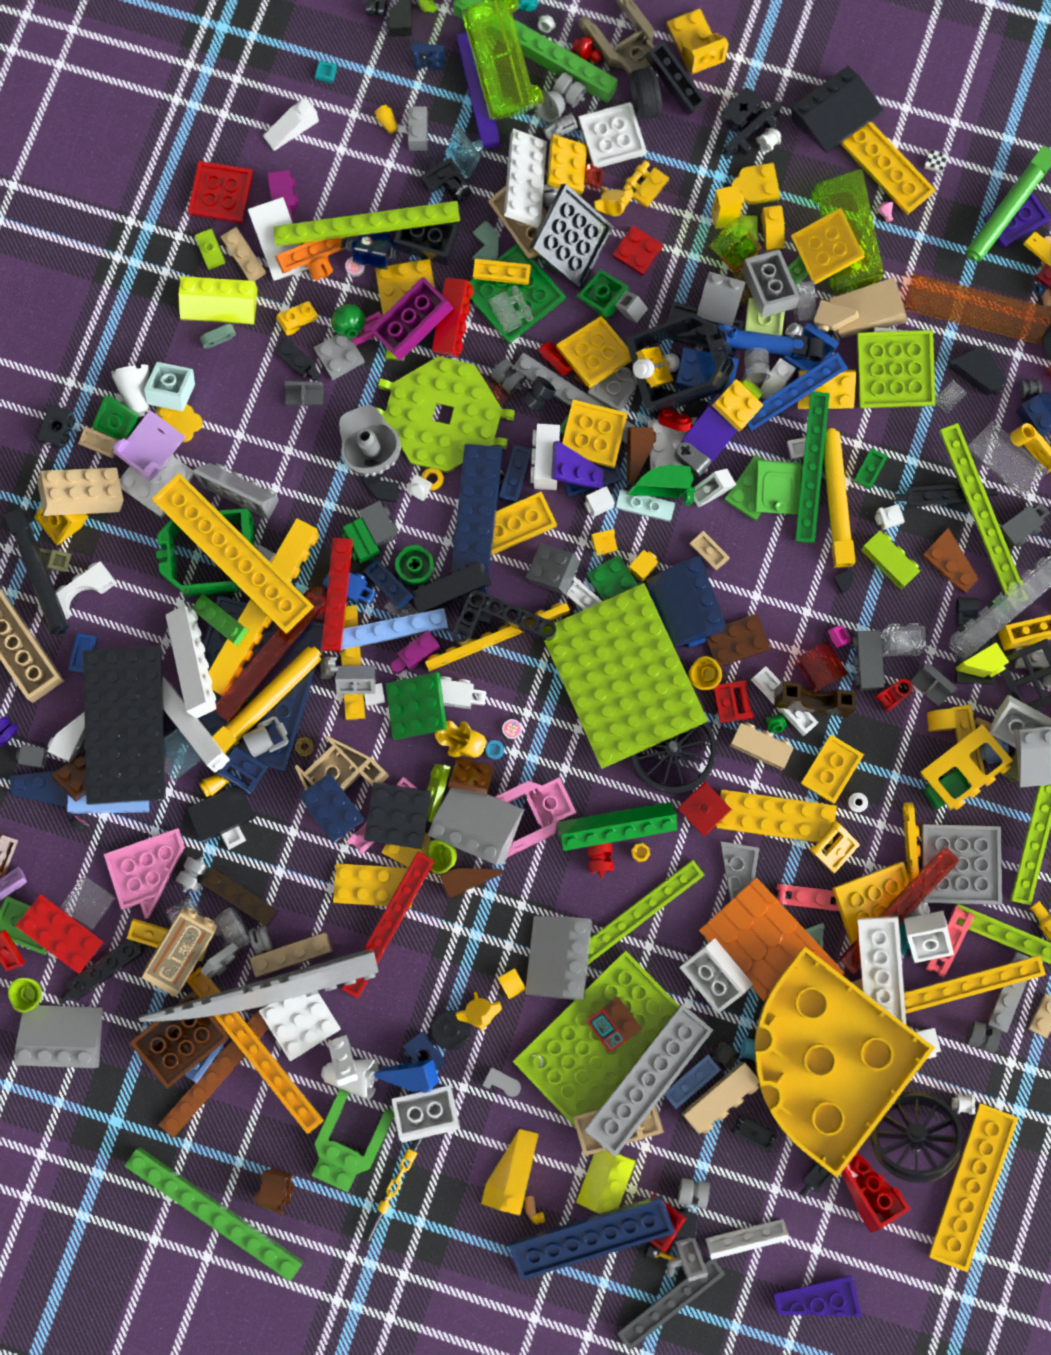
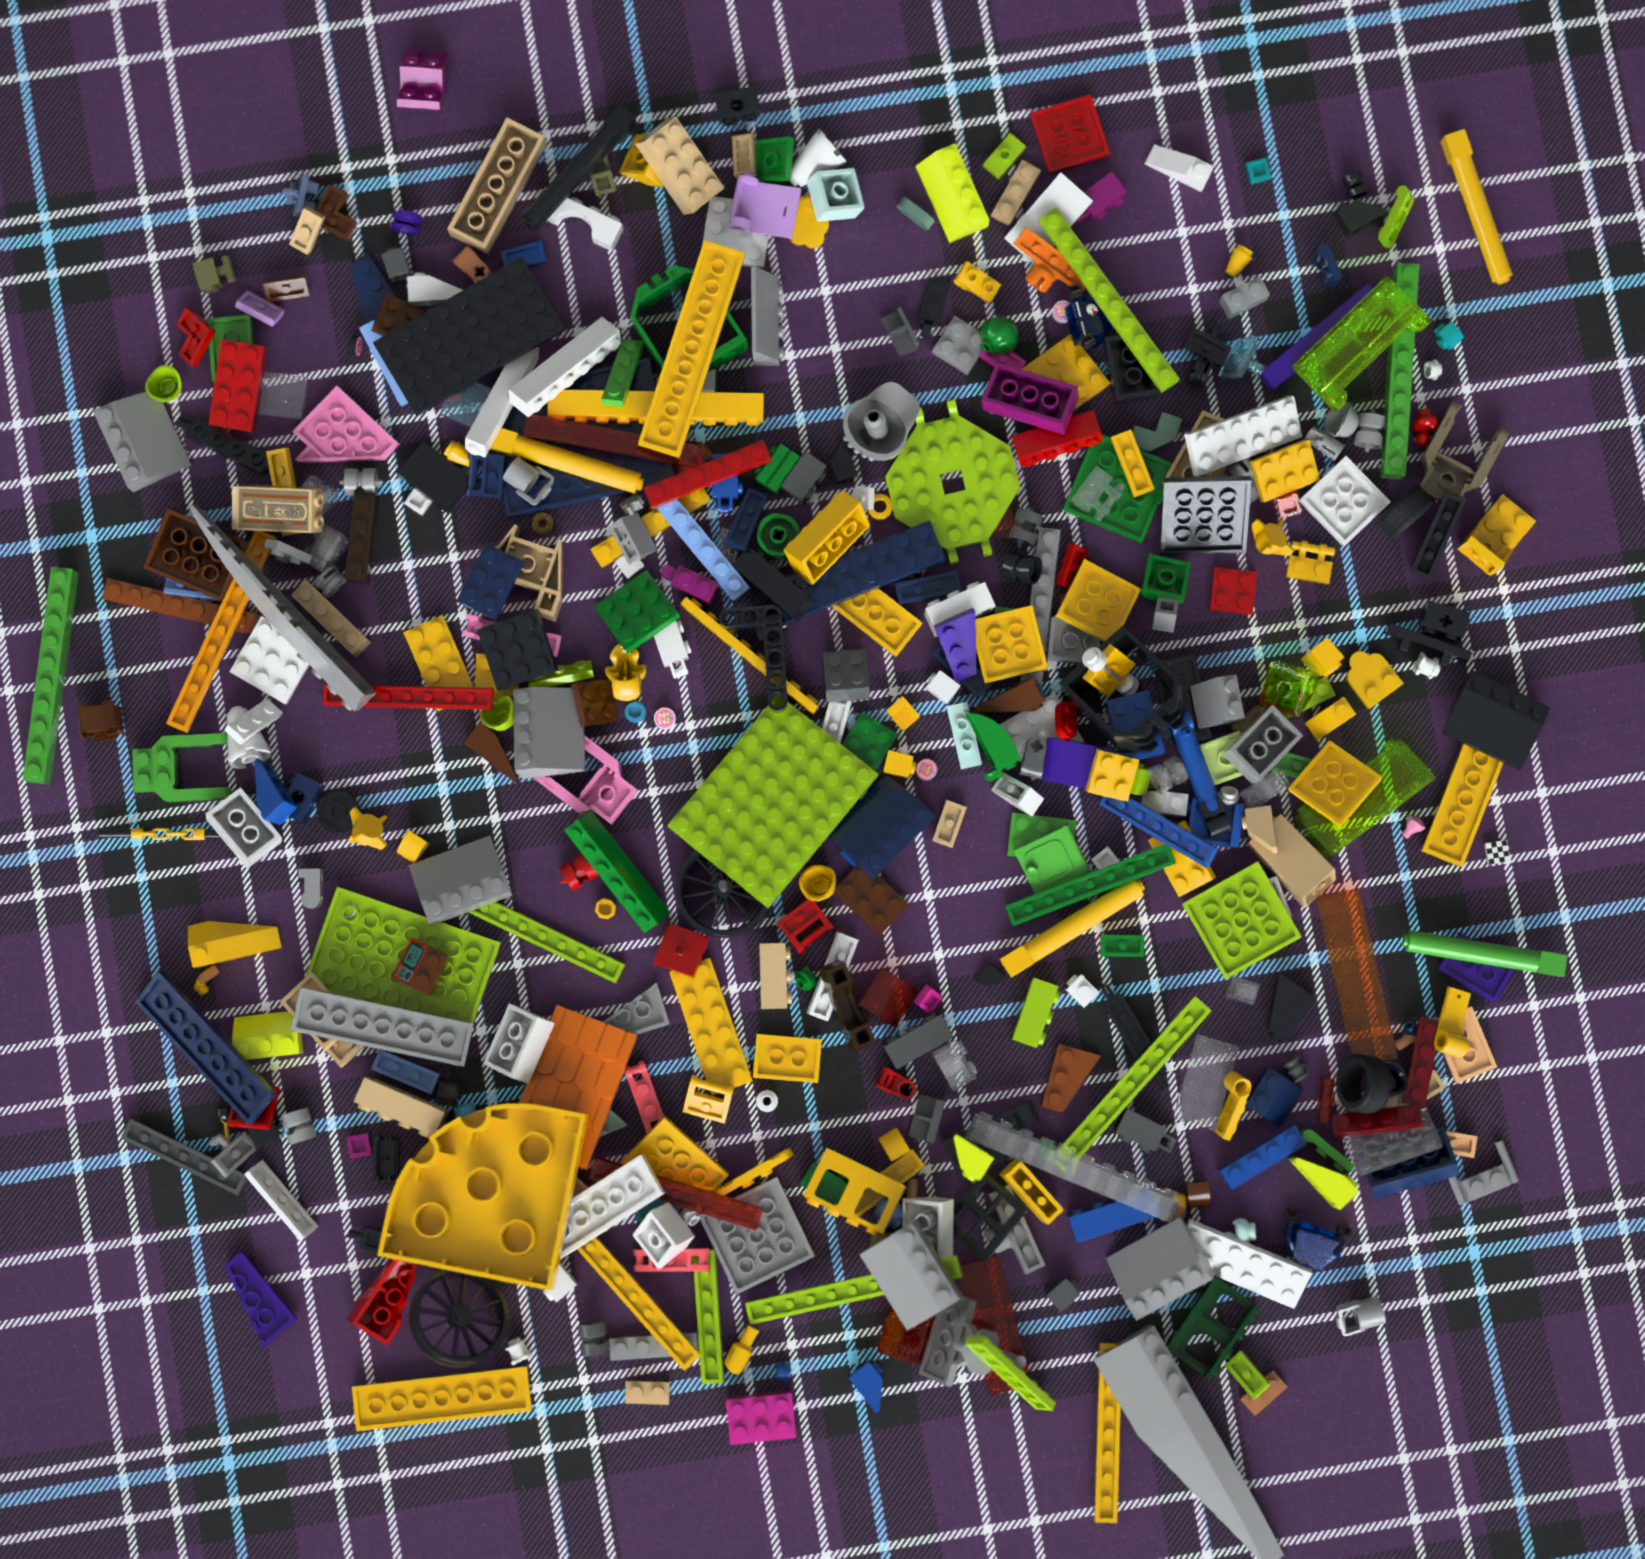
camera: 65 degrees right, 5 degrees up
(65, 697) = (471, 264): none -> nougat piece
(436, 527) = (827, 537): none -> yellow brick
(657, 547) = (926, 769): none -> tile
(733, 1150) = (359, 1145): none -> magenta plate

